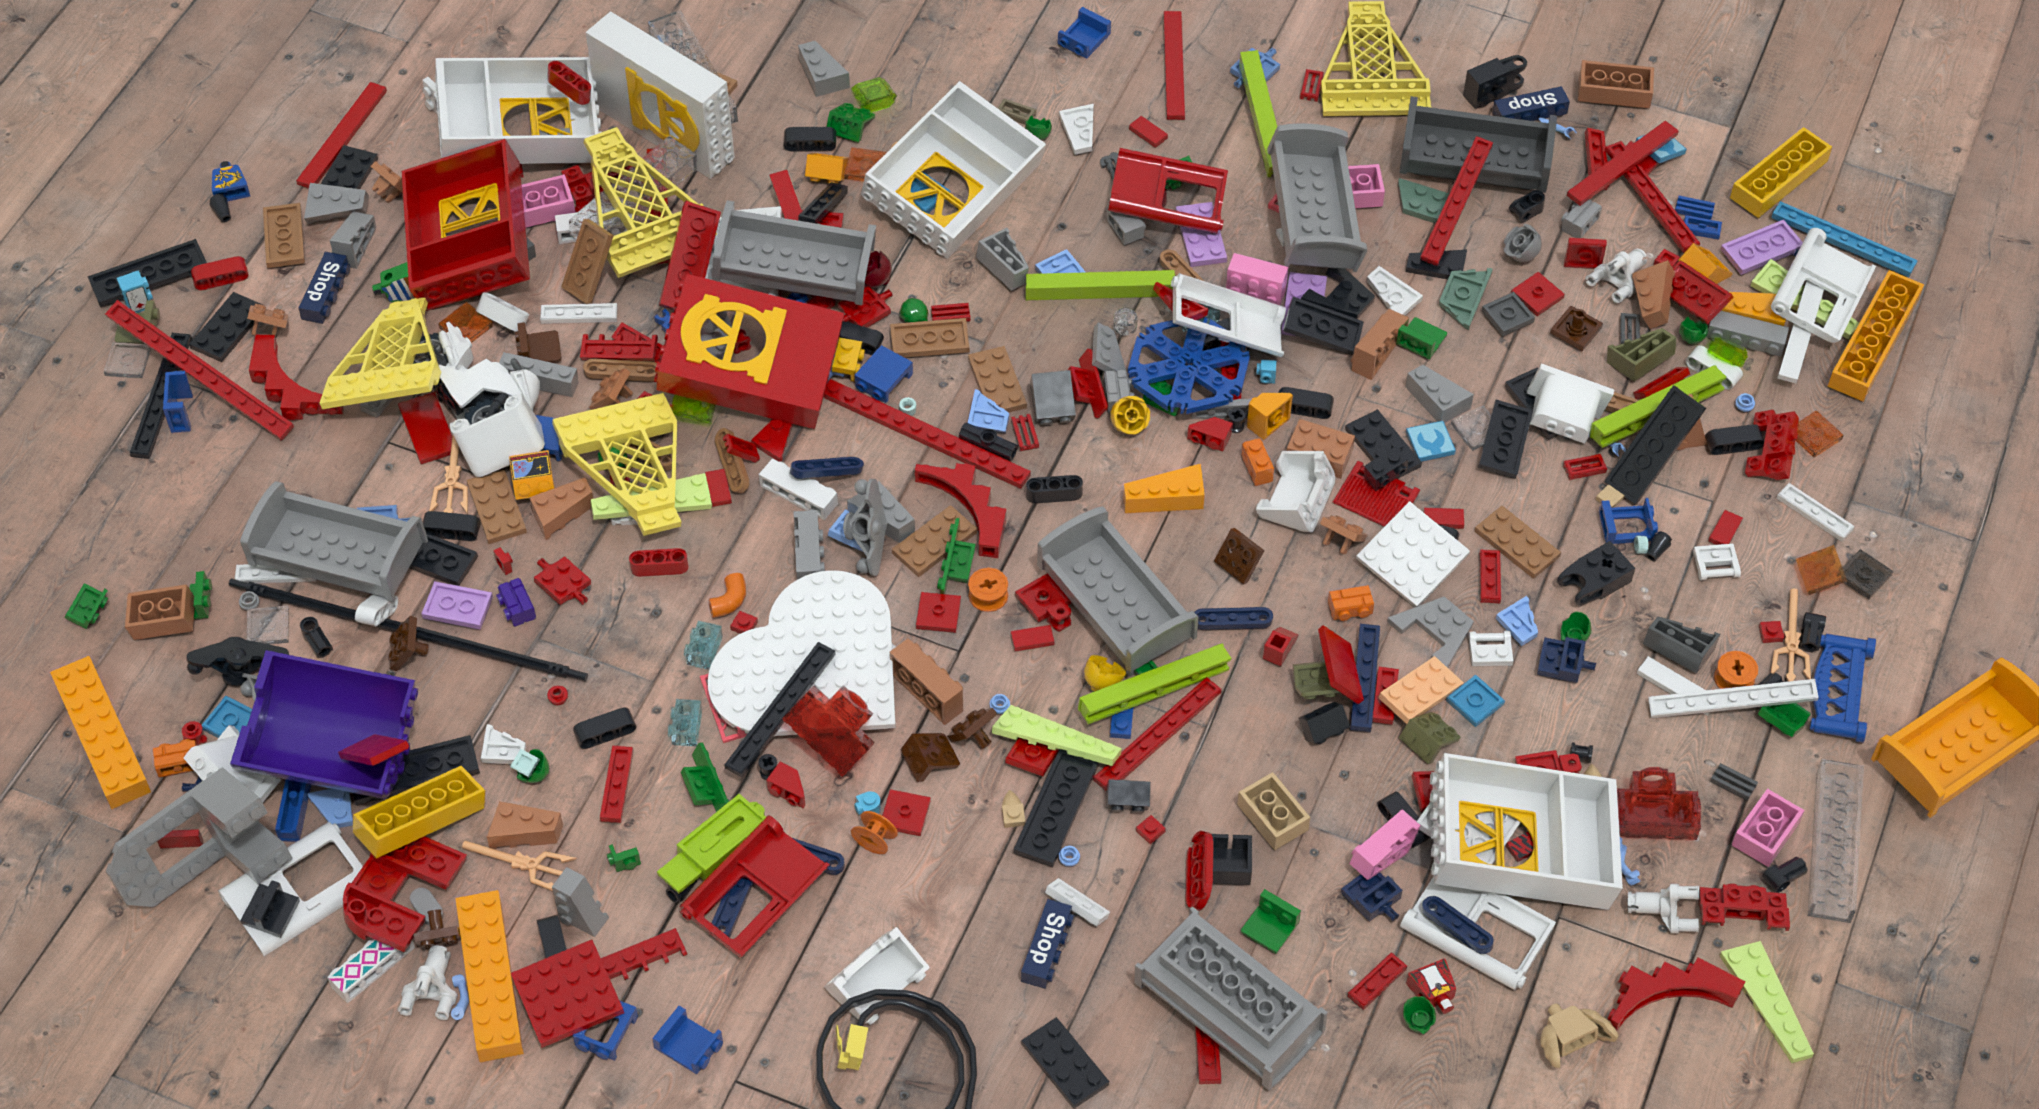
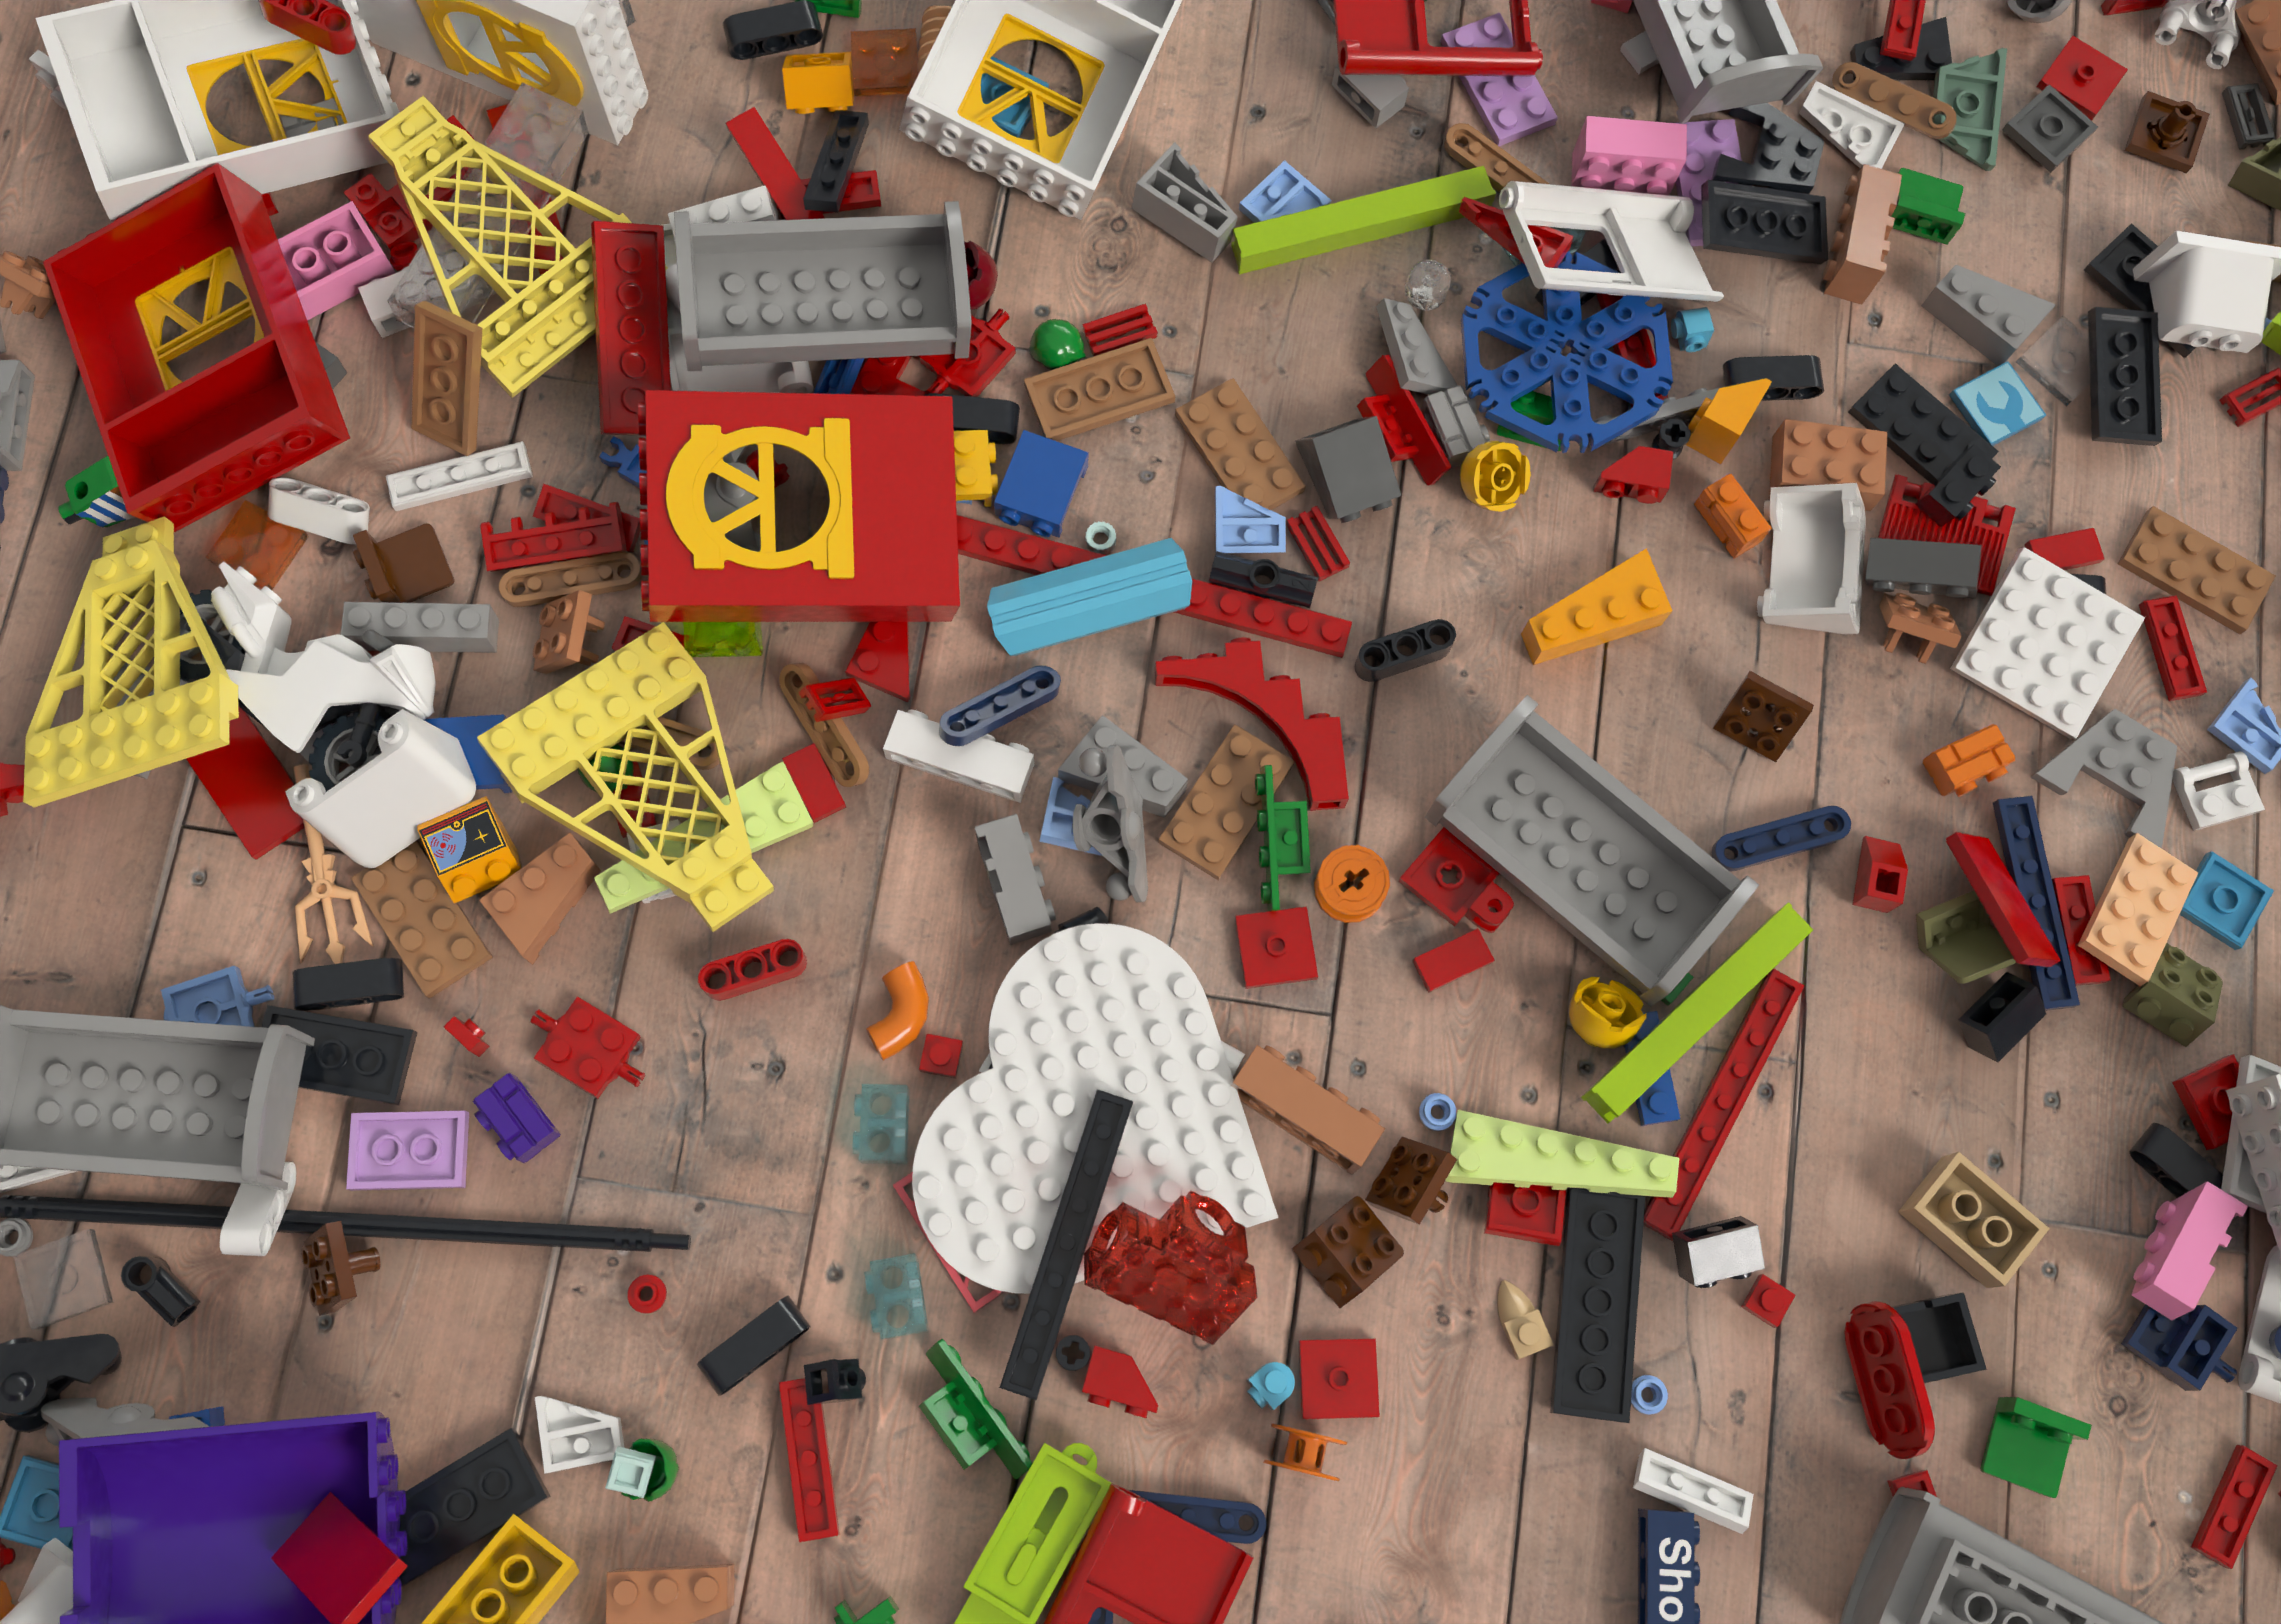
camera: 20 degrees left, 20 degrees up
(640, 749) = (843, 1377): none -> black brick
(890, 430) = (1090, 597): none -> medium azure piece
(1357, 505) = (1924, 567): none -> dark grey wedge
(1421, 283) = (1895, 100): none -> medium nougat plate

